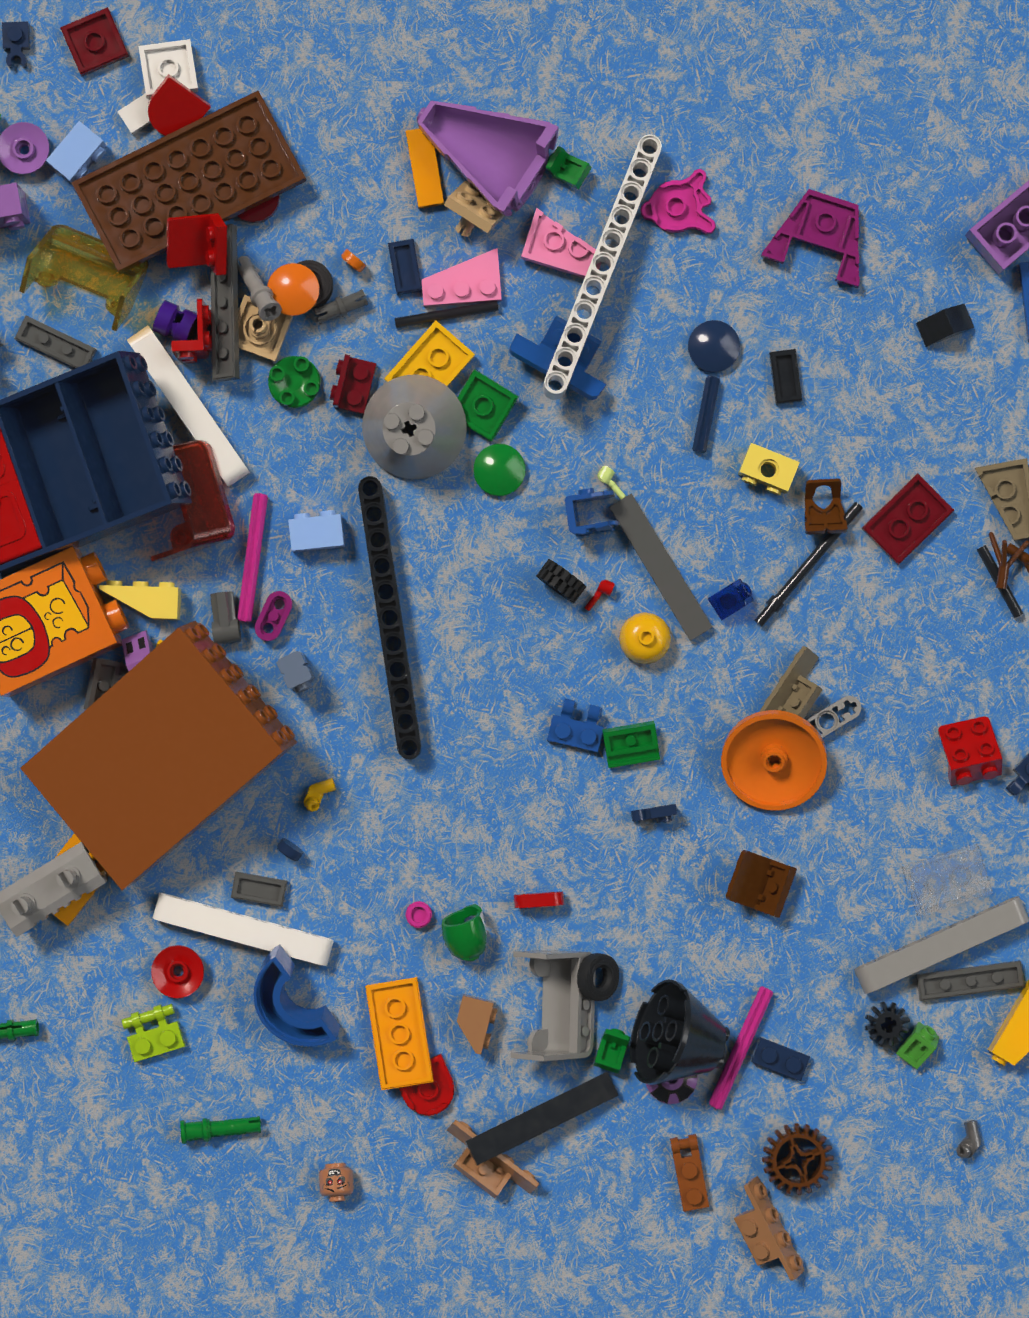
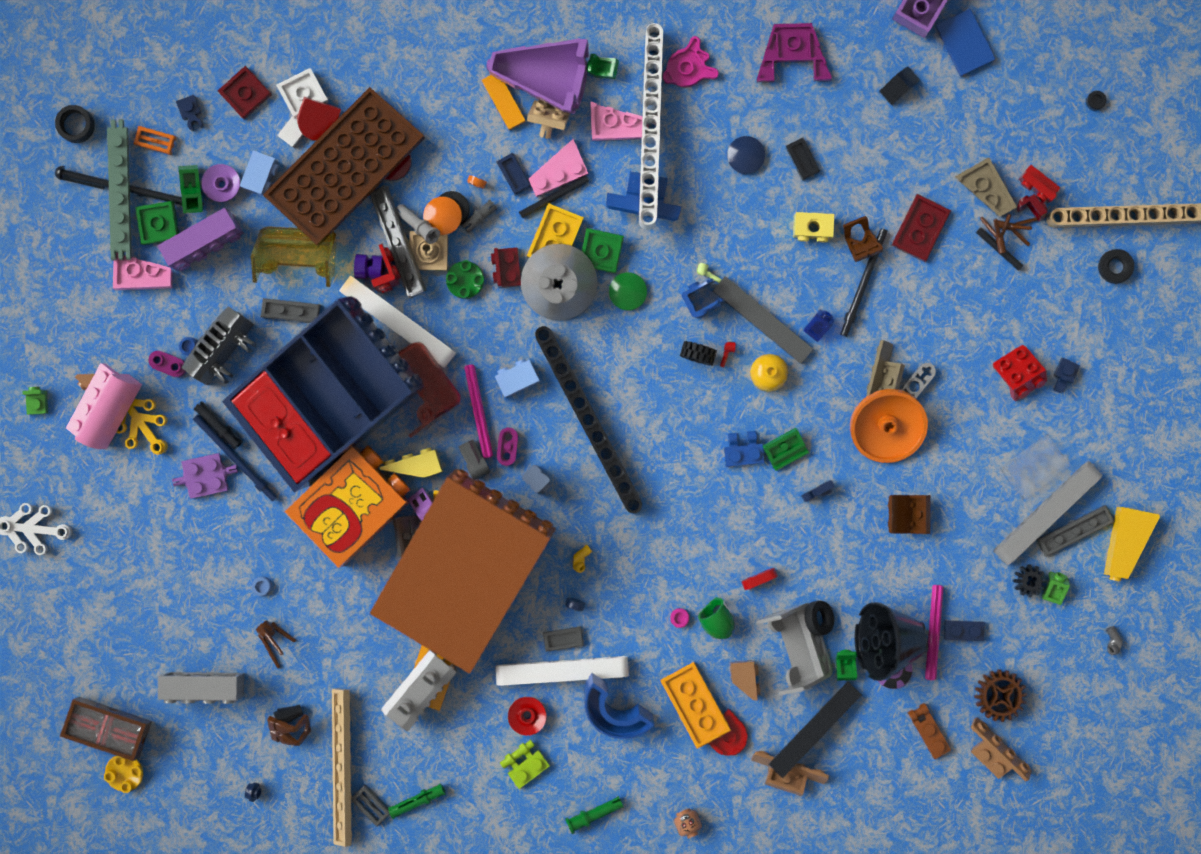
camera: 20 degrees left, 0 degrees up
(197, 242) = (365, 205): red bracket -> none
(706, 414) = (757, 205): dark blue axle -> none

